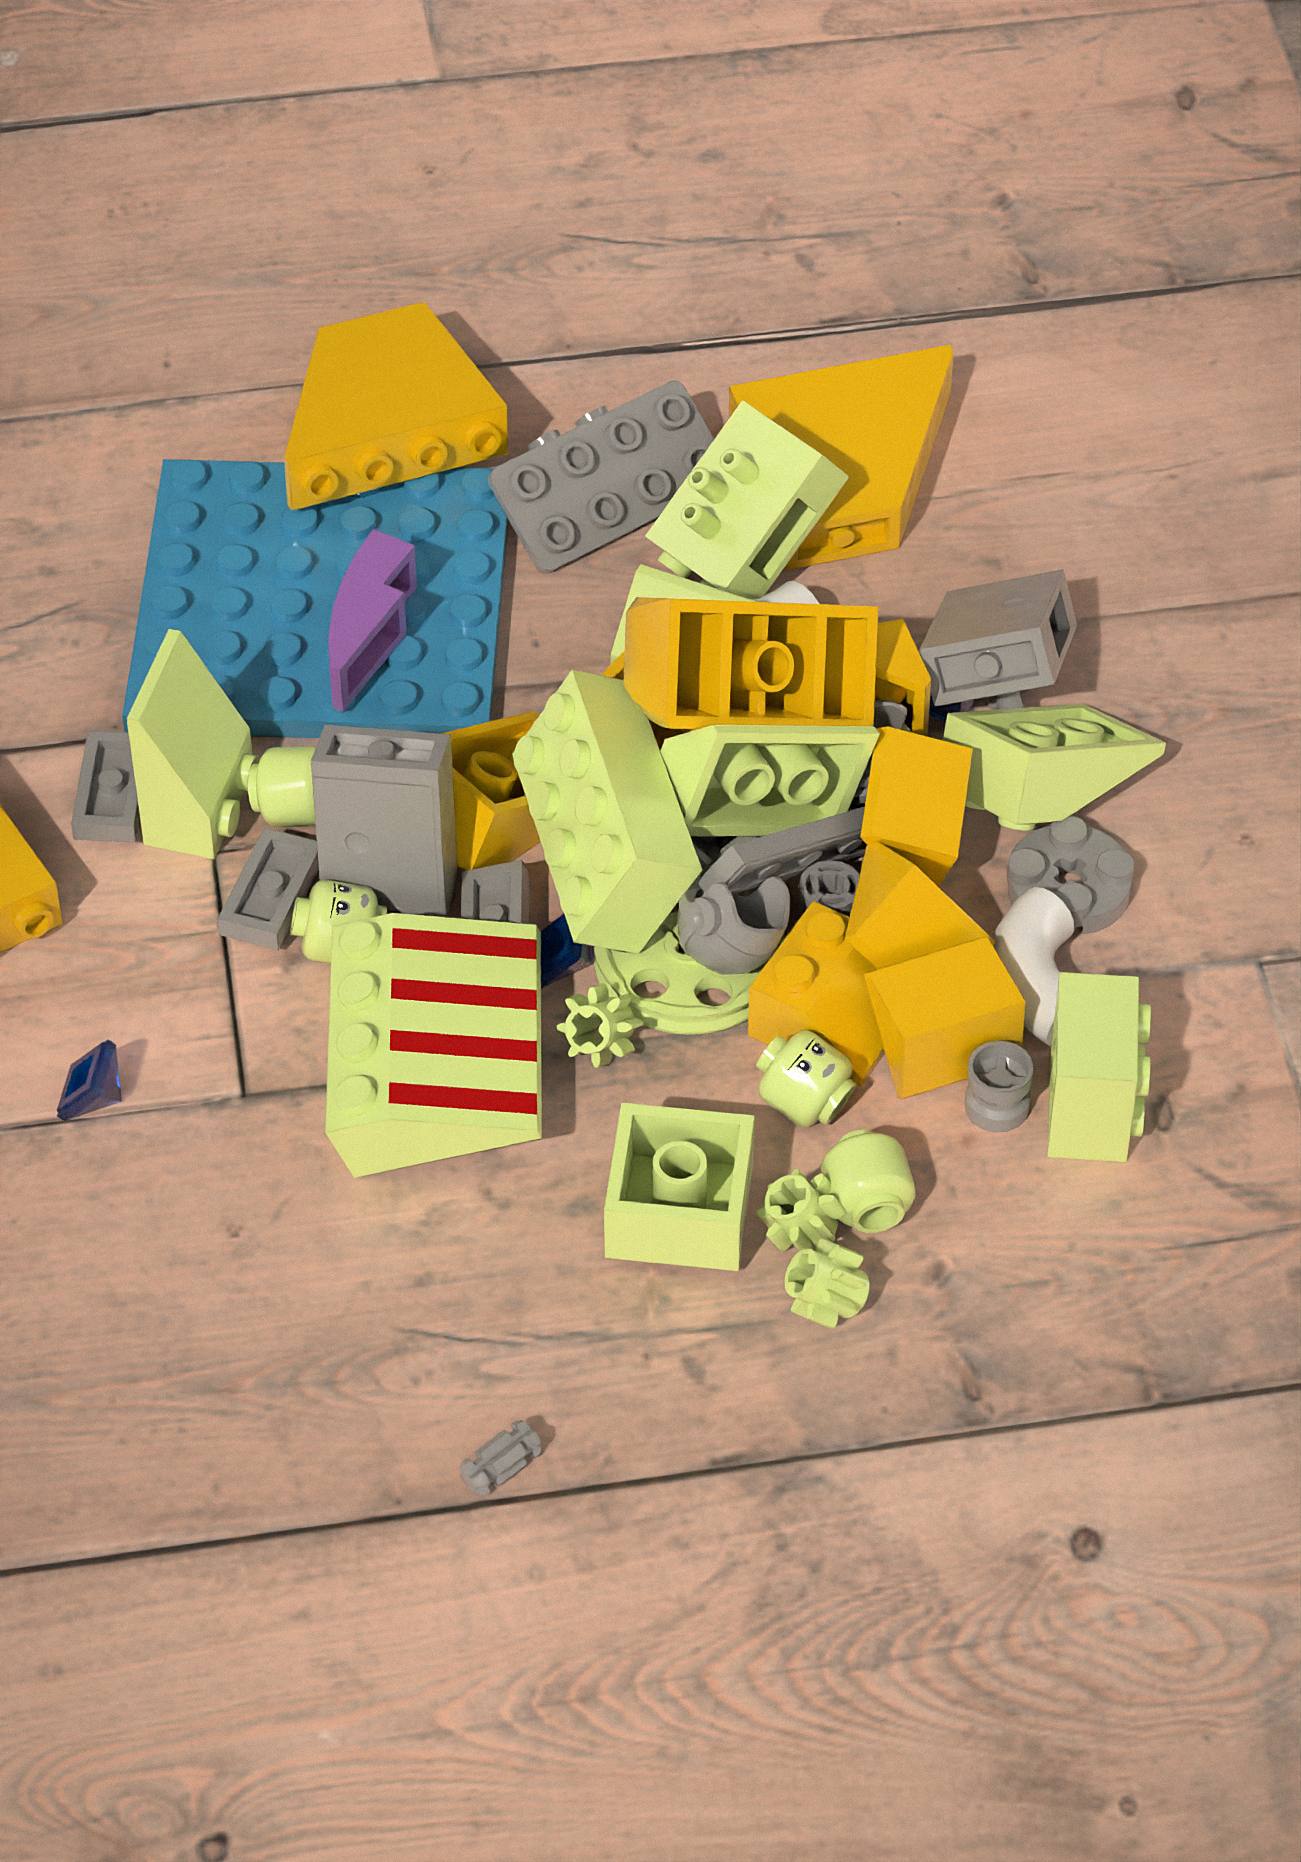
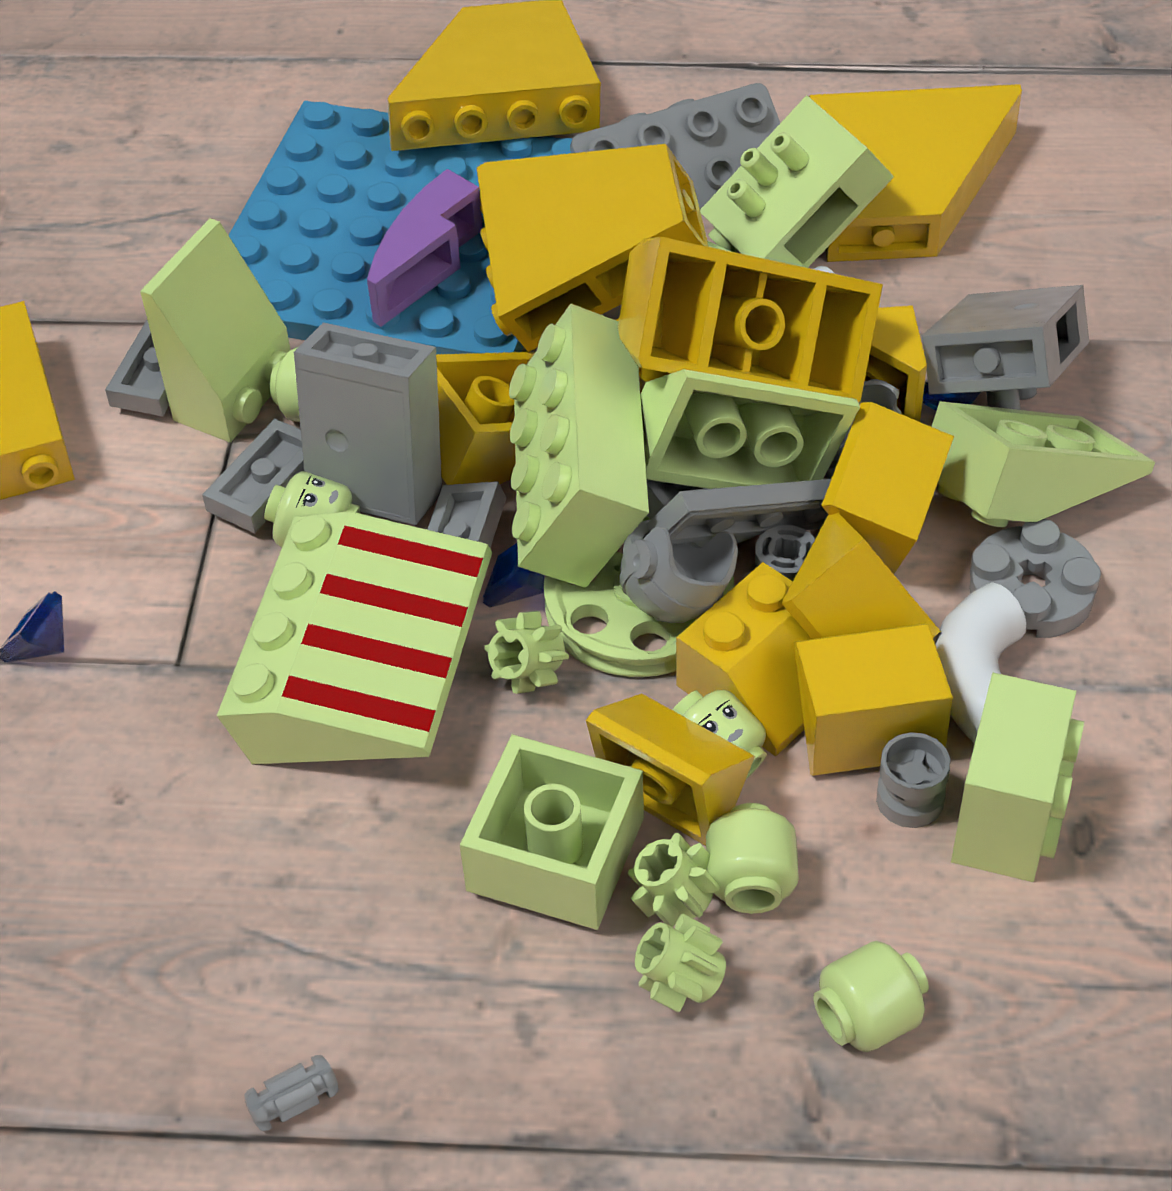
camera: 15 degrees right, 0 degrees up
(539, 584) = (567, 226): none -> yellow slope
(794, 1109) = (686, 768): none -> yellow slope
(1005, 1282) = (871, 996): none -> yellowish green head

